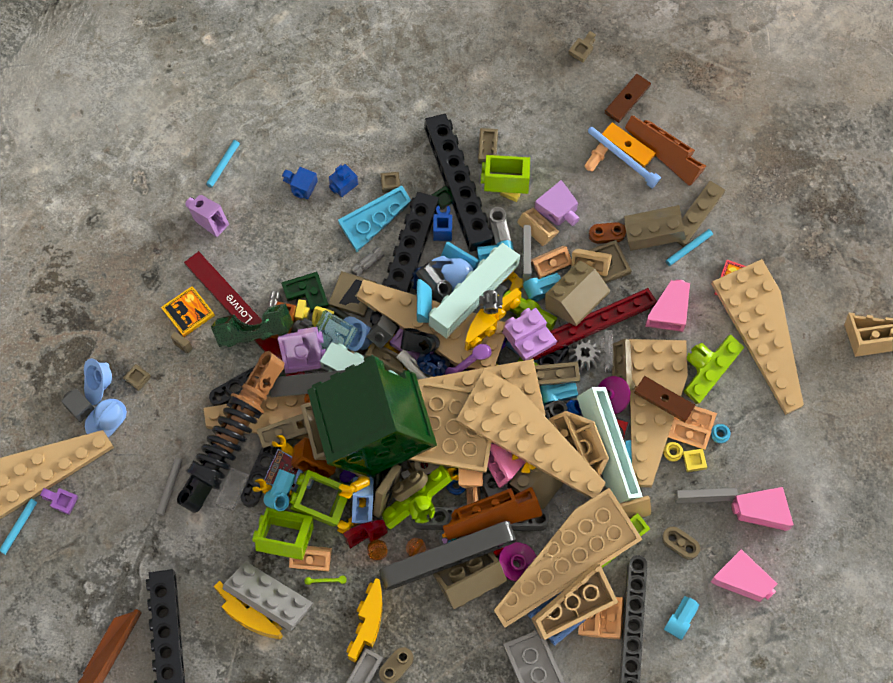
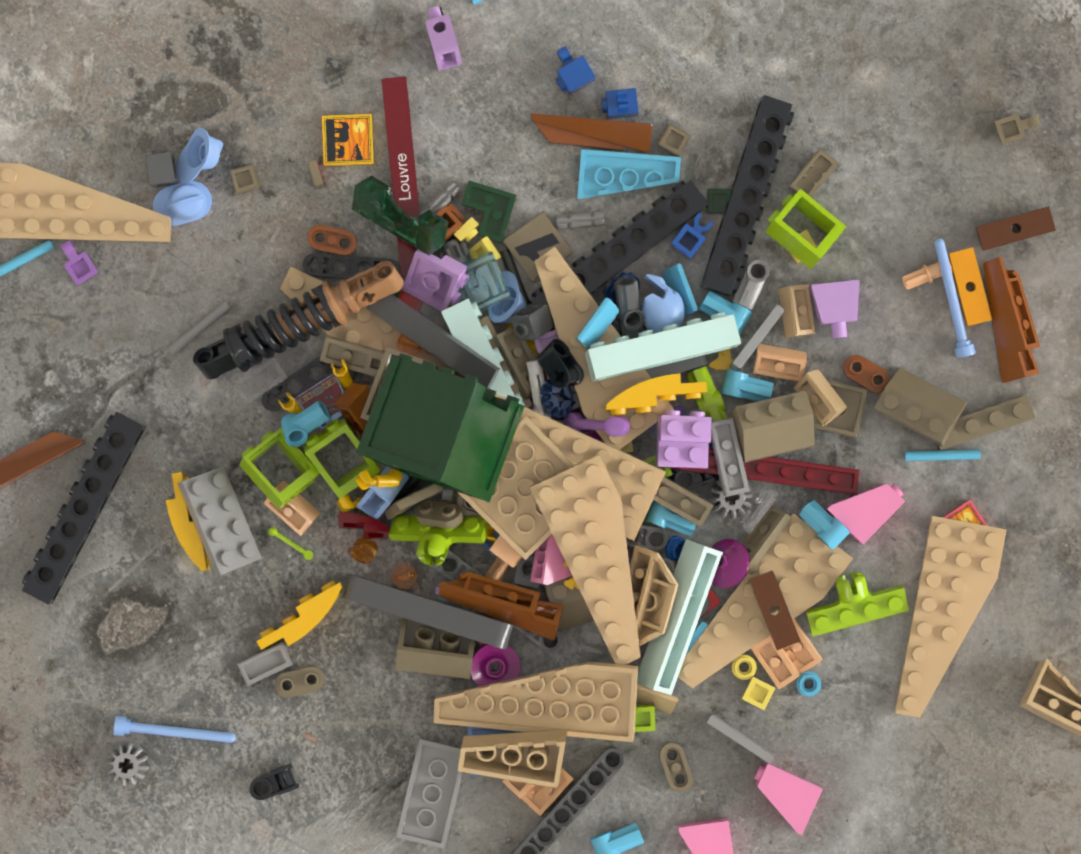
camera: 35 degrees right, 20 degrees up
(219, 374) = (332, 240): none -> dark orange plate
(338, 205) = (594, 132): none -> dark orange wedge
(490, 302) = (661, 383): dark grey gear -> none
(566, 329) = (728, 458): none -> light grey tile
(658, 331) = (829, 529): none -> medium azure piece

